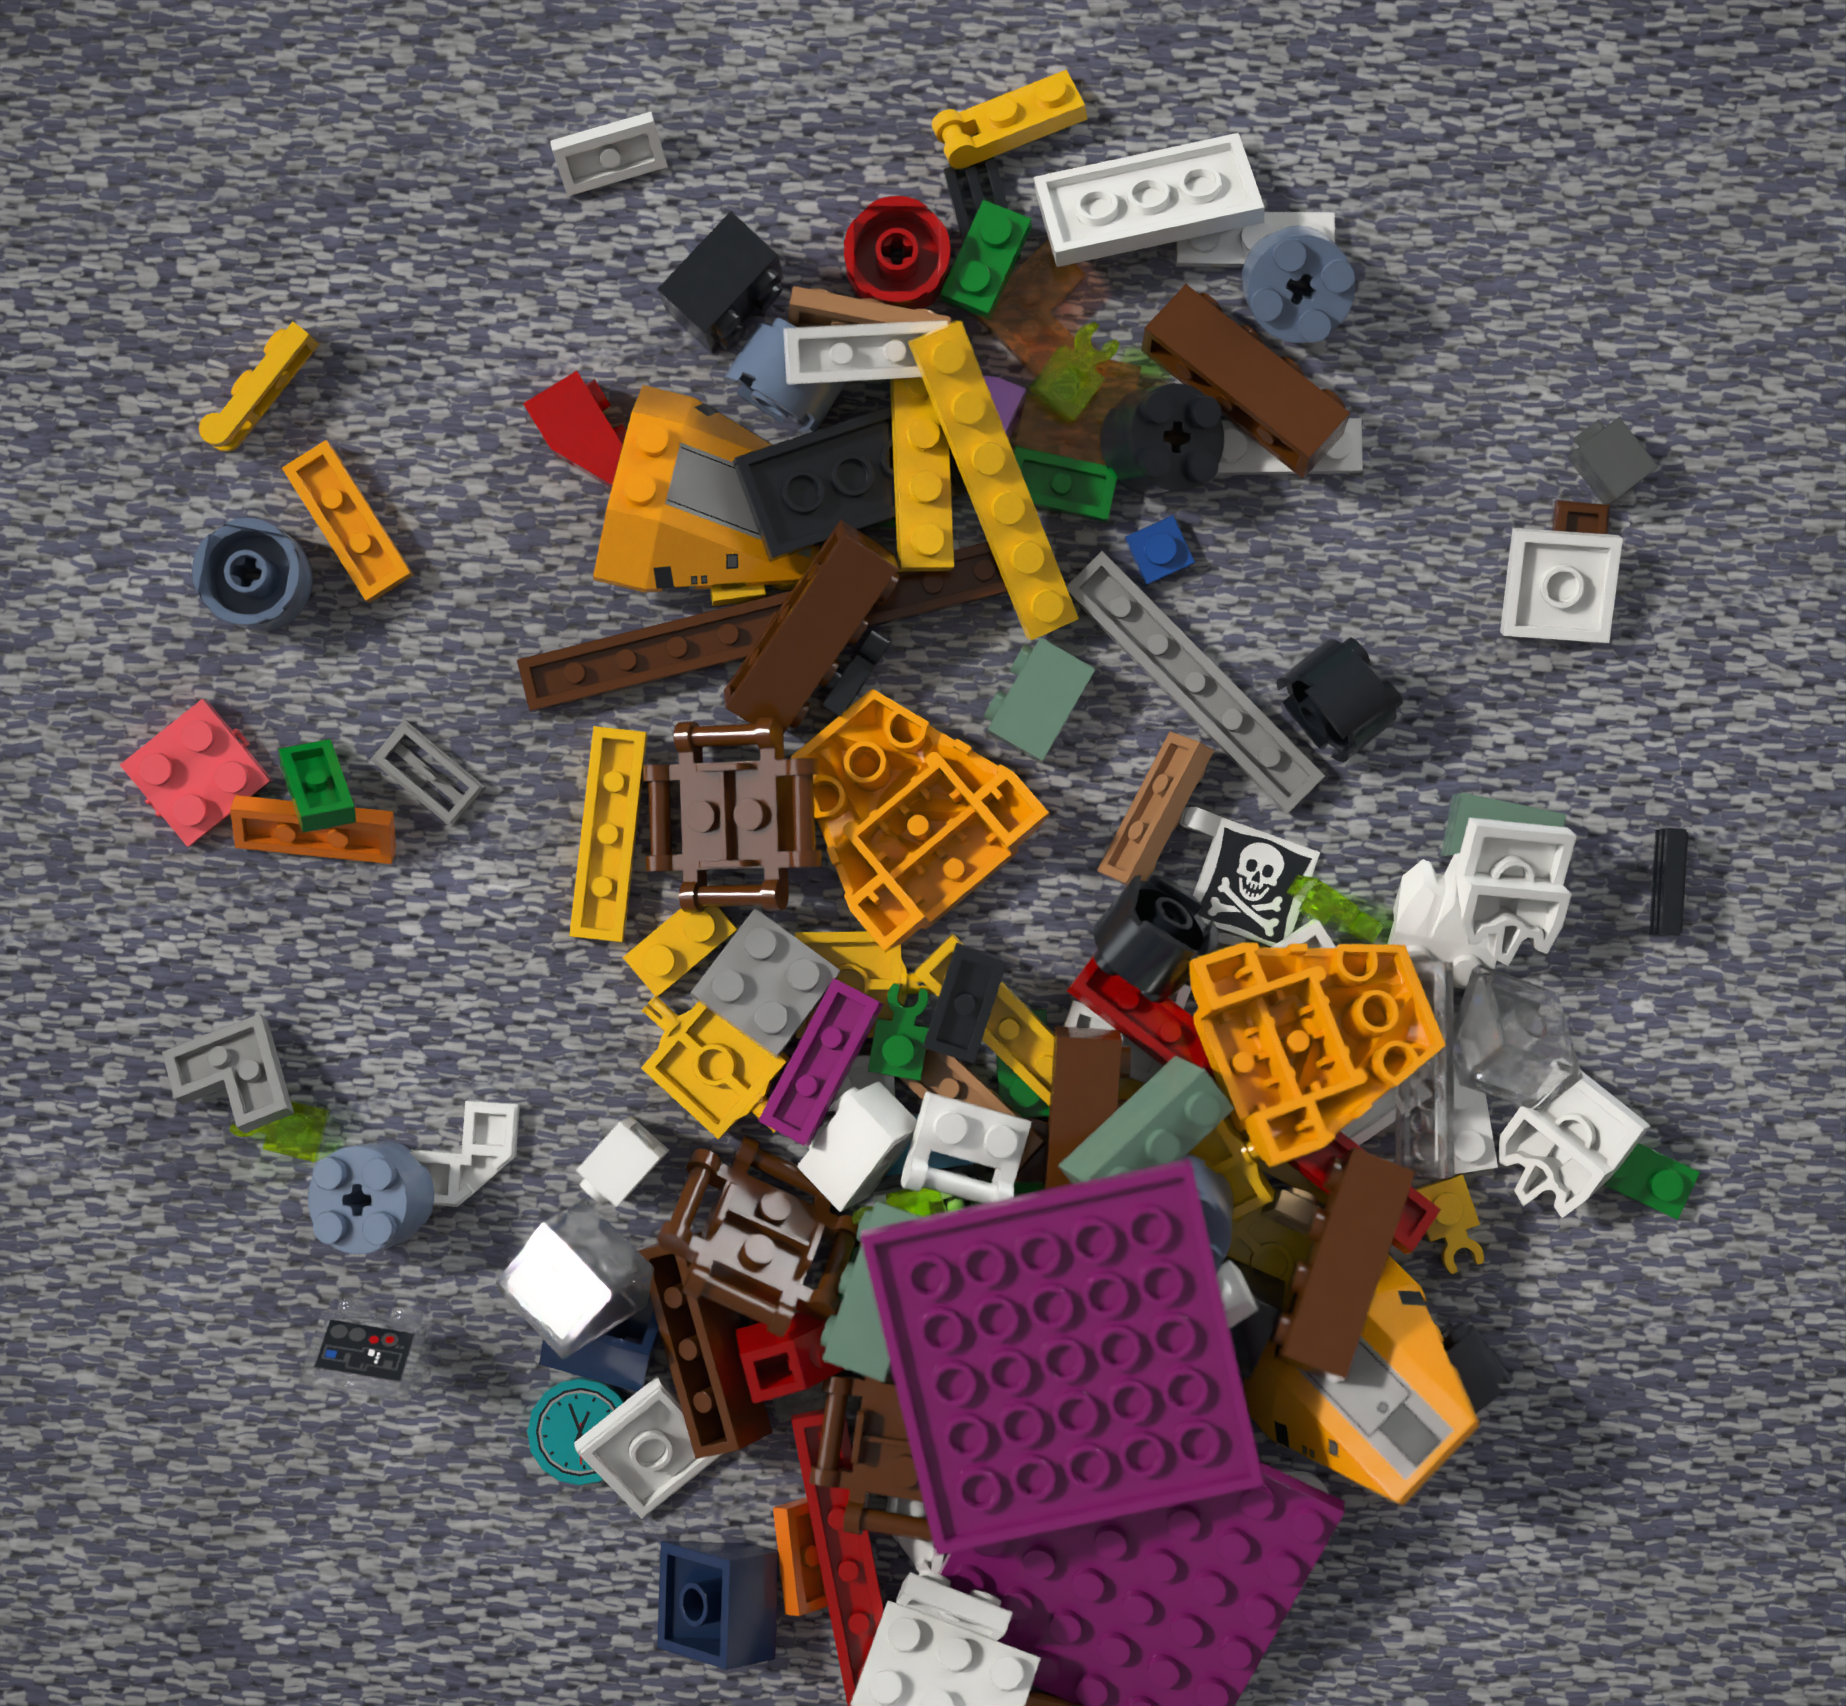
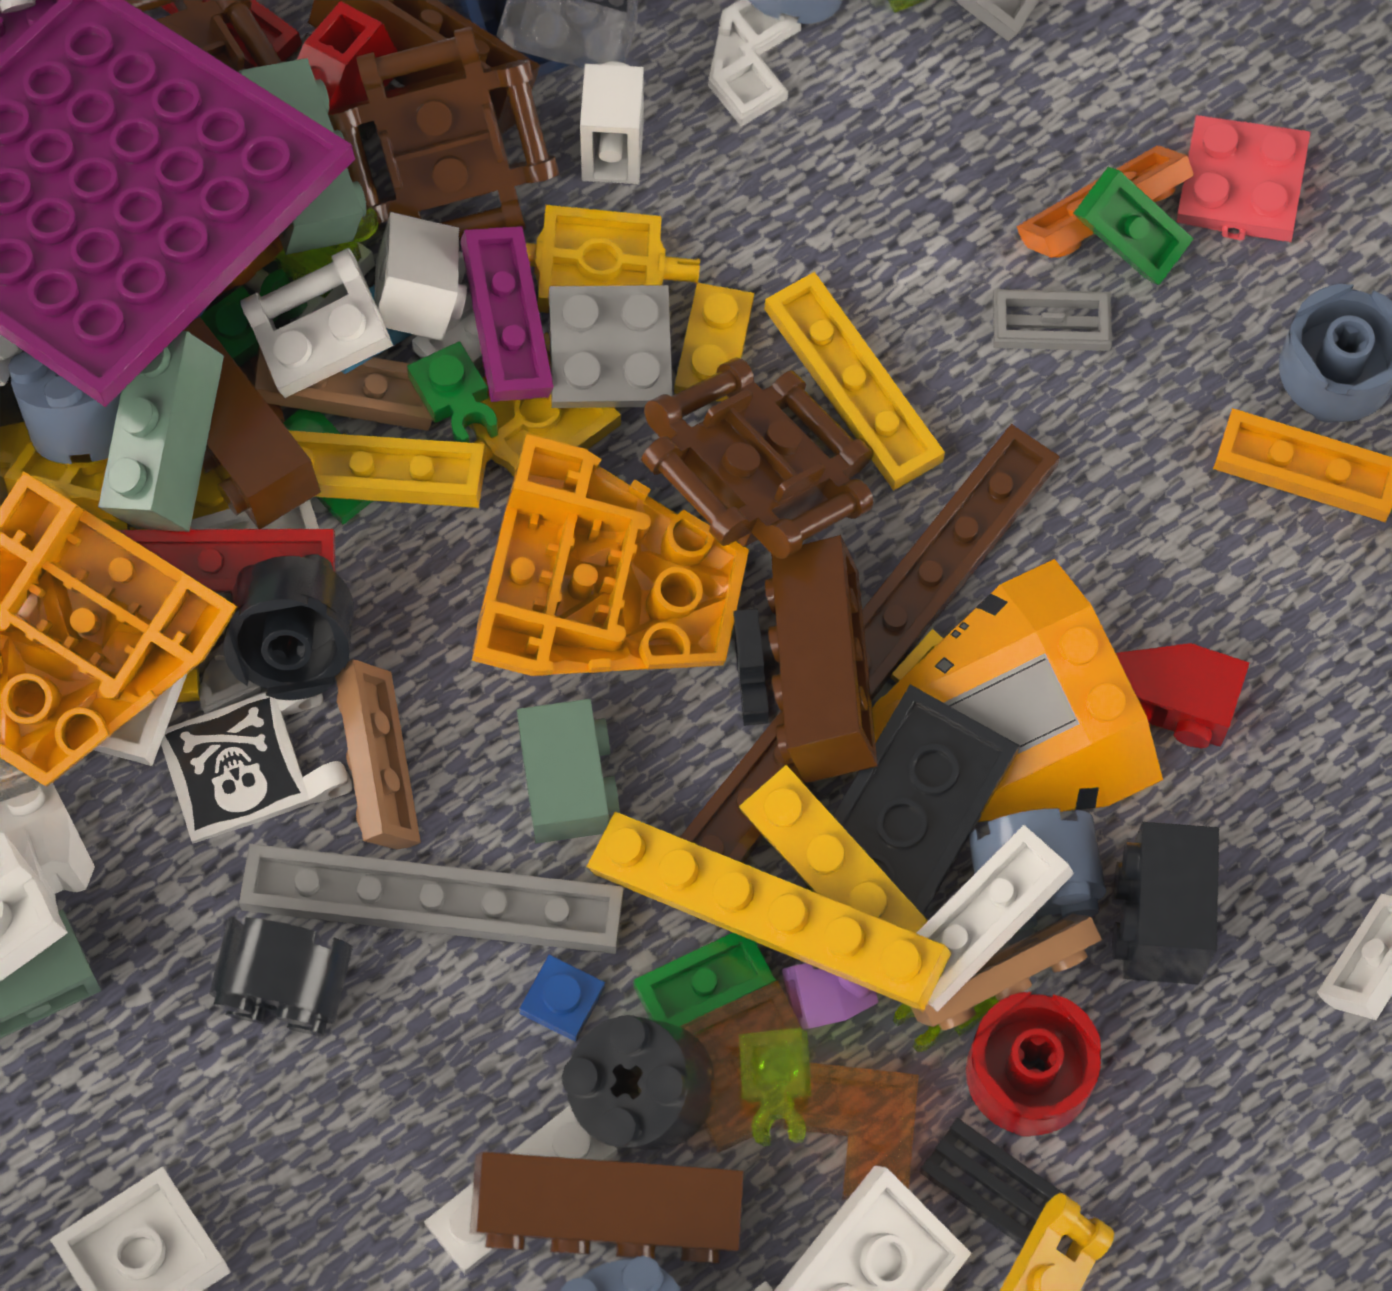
camera: 135 degrees right, 20 degrees down
(965, 1003) = (418, 444): black plate -> none
(986, 259) = (948, 1129): green plate -> none
(1326, 905) = (150, 789): clear neon green plate -> none

